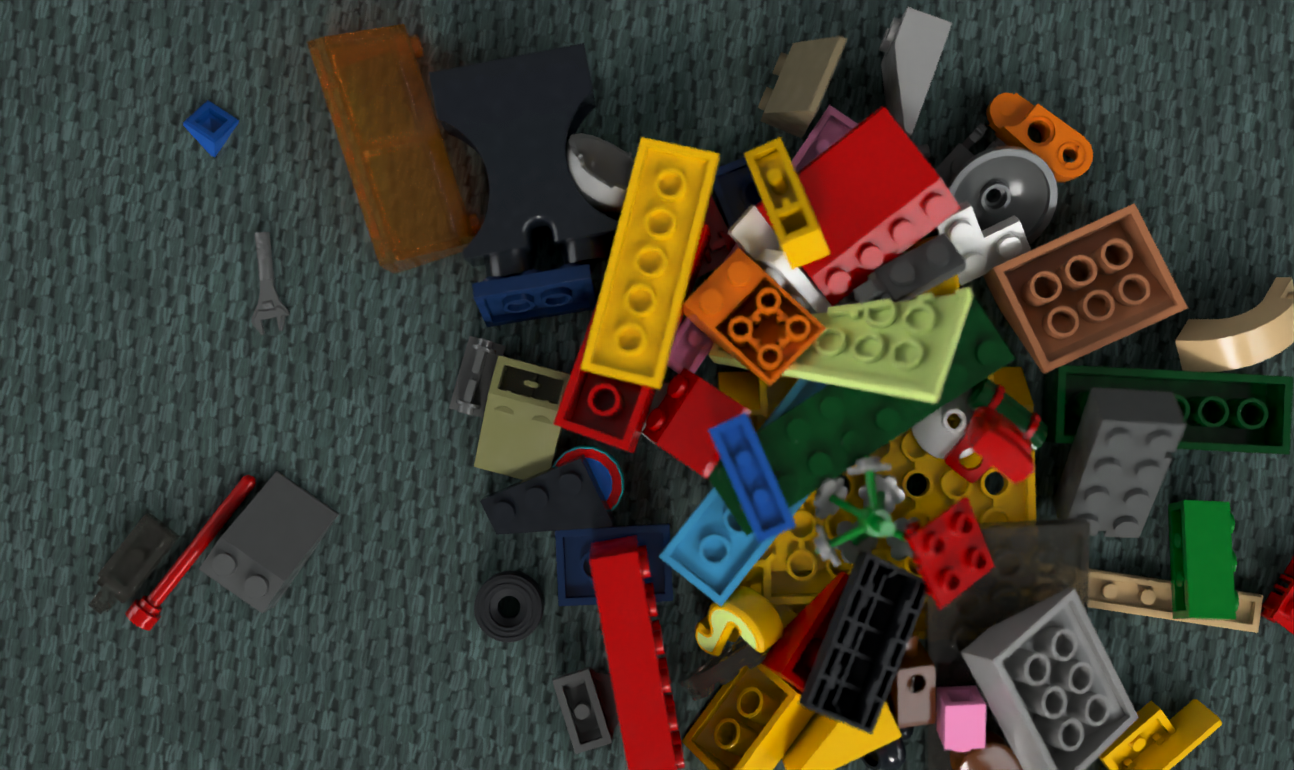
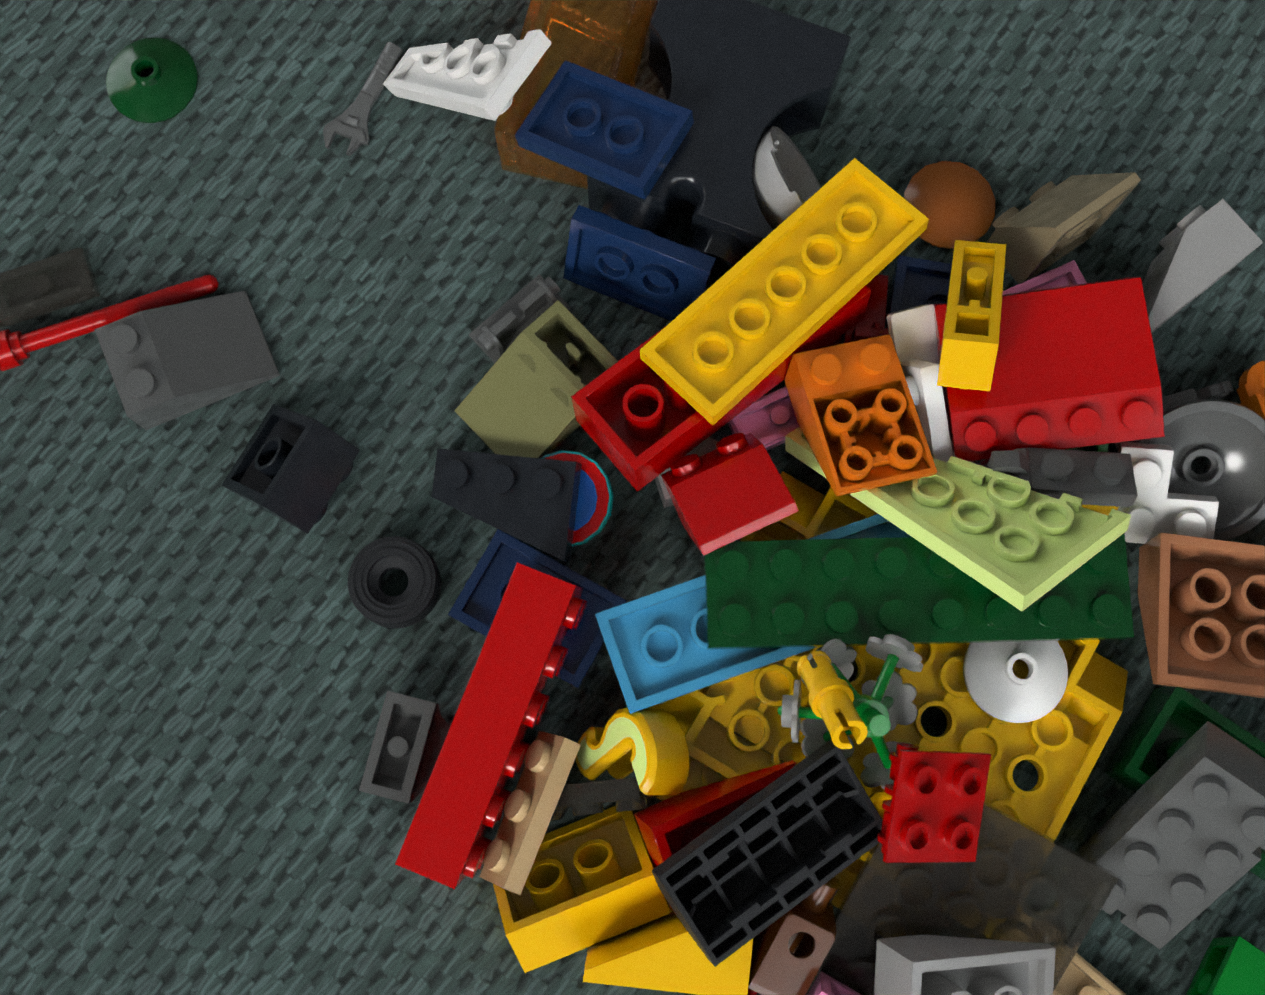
camera: 25 degrees right, 10 degrees down
(123, 364) = (158, 95): none -> dark green dish
(333, 234) = (471, 76): none -> white wing
(390, 575) = (292, 467): none -> black slope
(457, 221) = (605, 129): none -> dark blue plate
(693, 701) = (529, 811): none -> tan plate
(719, 110) = (954, 200): none -> dark orange dish
(752, 477) = (756, 578): blue plate -> none
(847, 529) = (831, 700): none -> yellow pin
(999, 433) = (1072, 712): red piece -> none

